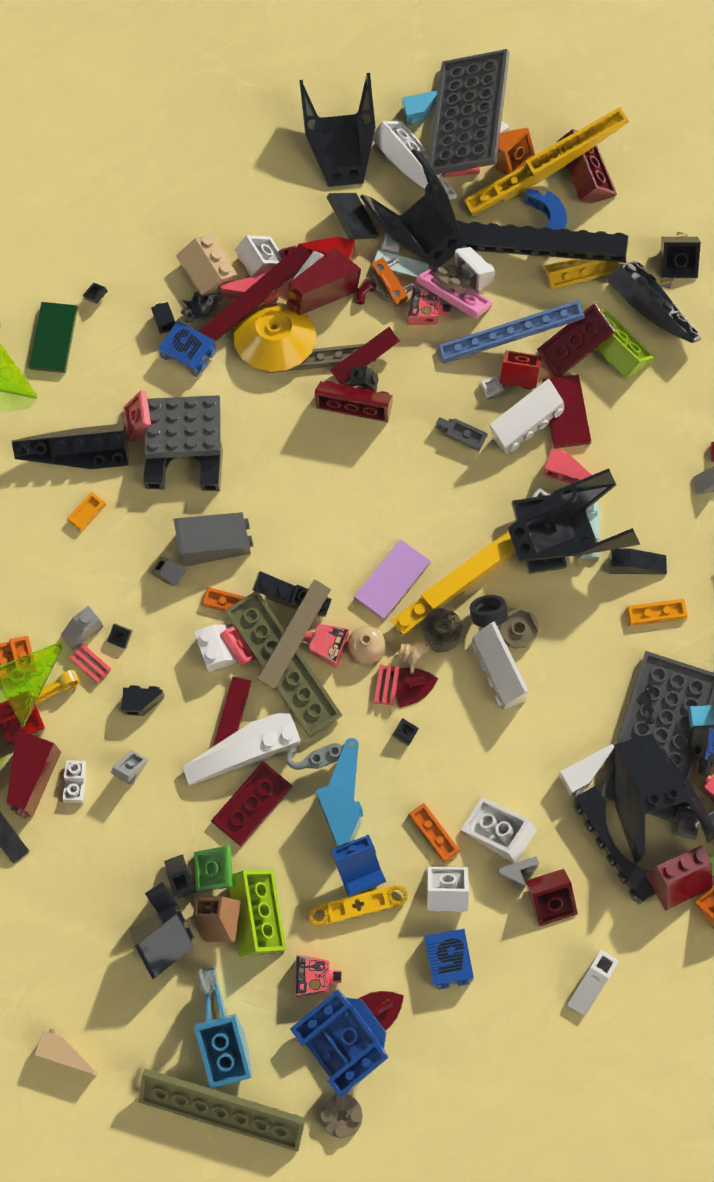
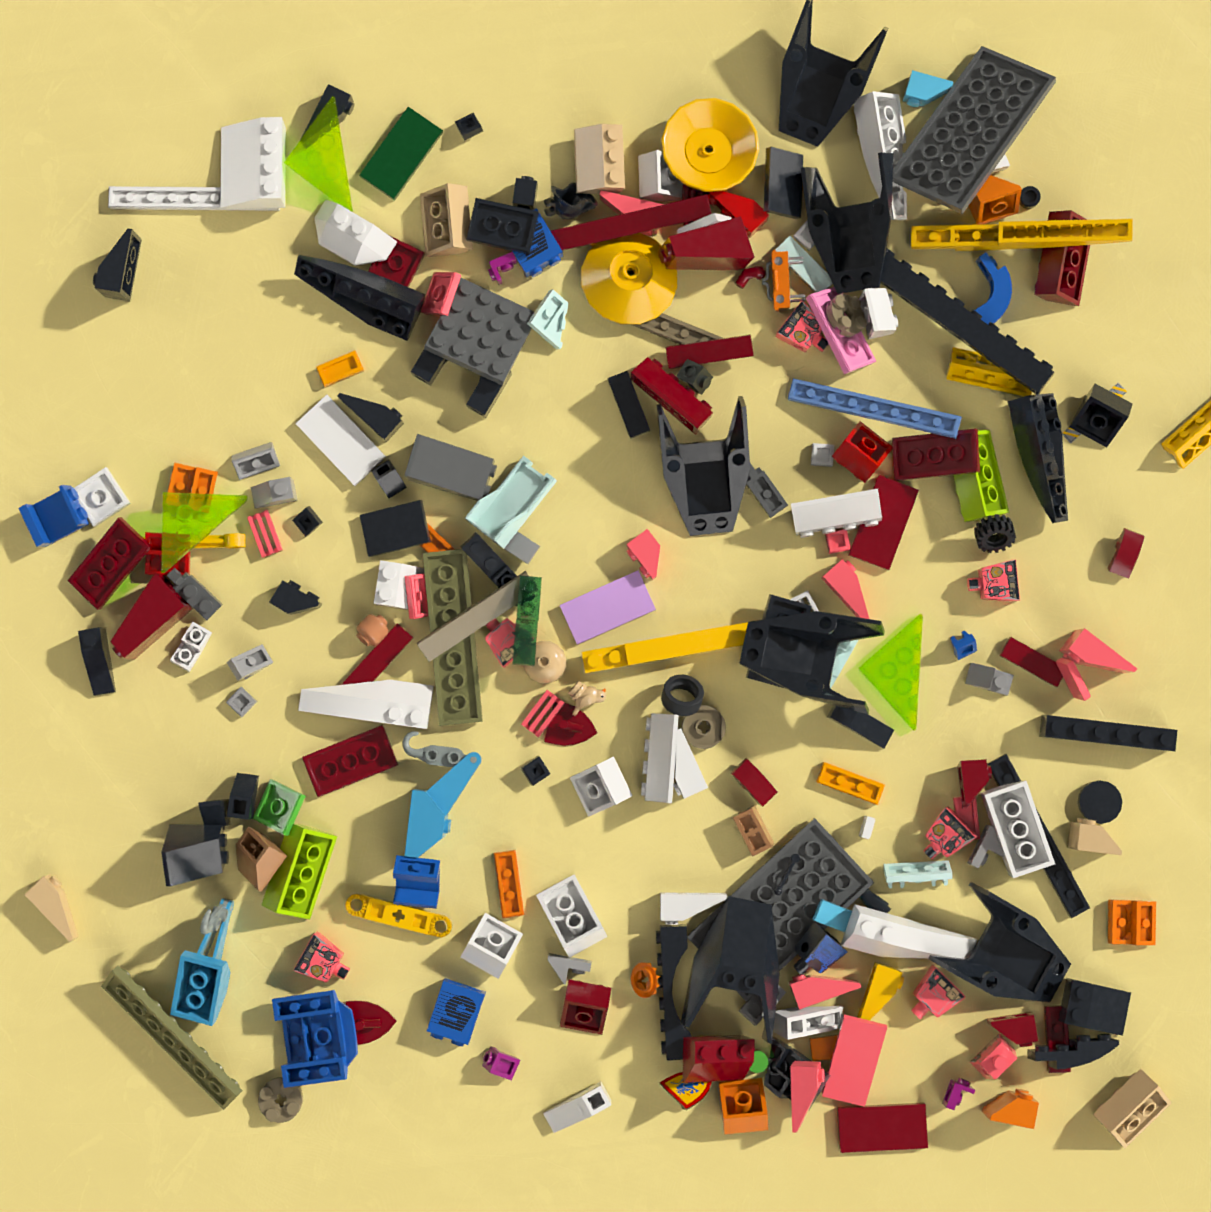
camera: 25 degrees right, 15 degrees up
(45, 409) = (351, 235): none -> white wedge
(54, 612) = (255, 460): none -> light grey slope
(62, 738) = (194, 593): none -> dark grey hinge
(90, 411) = (400, 264): none -> dark red tile
(113, 365) = (446, 220): none -> tan slope
(114, 563) = (340, 440): none -> white tile
(133, 530) = (376, 416): none -> black slope
(138, 803) = (241, 701): none -> light grey tile
(158, 344) = (502, 226): none -> black tile
(172, 374) = (502, 263): none -> magenta bracket
(192, 605) = (395, 528): none -> black tile
(215, 691) = (372, 630): none -> nougat head
(230, 393) = (550, 318): none -> light aqua wing
(275, 538) = (508, 507): none -> light aqua piece
(283, 203) = (714, 126): none -> yellow dish
(294, 567) = (522, 547): none -> light grey slope
(325, 425) = (628, 404): none -> black tile
(335, 615) = (527, 620): none -> clear green slope
(399, 522) = (646, 551): none -> coral slope
(417, 442) = (707, 475): none -> black windscreen
(446, 620) = (634, 680): clear smoke brick -> none
(464, 716) = (601, 786): none -> white slope
(508, 981) = (500, 1063): none -> magenta bracket
(529, 668) = (687, 773): none -> white slope
(538, 141) = (1029, 197): none -> black tile
(540, 442) = (837, 541): none -> coral tile
(579, 846) = (638, 974): none -> orange gear
(582, 648) = (754, 782): none -> dark red slope
(604, 685) = (753, 830): none -> medium nougat hinge
(642, 511) = (896, 671): none -> clear neon green tile
(659, 379) = (986, 533): none -> black tyre
(672, 918) = (685, 1093): none -> shield
(677, 408) = (997, 582): none -> torso
(680, 466) = (964, 646): none -> blue tile
(689, 636) = (867, 827): none -> white tile

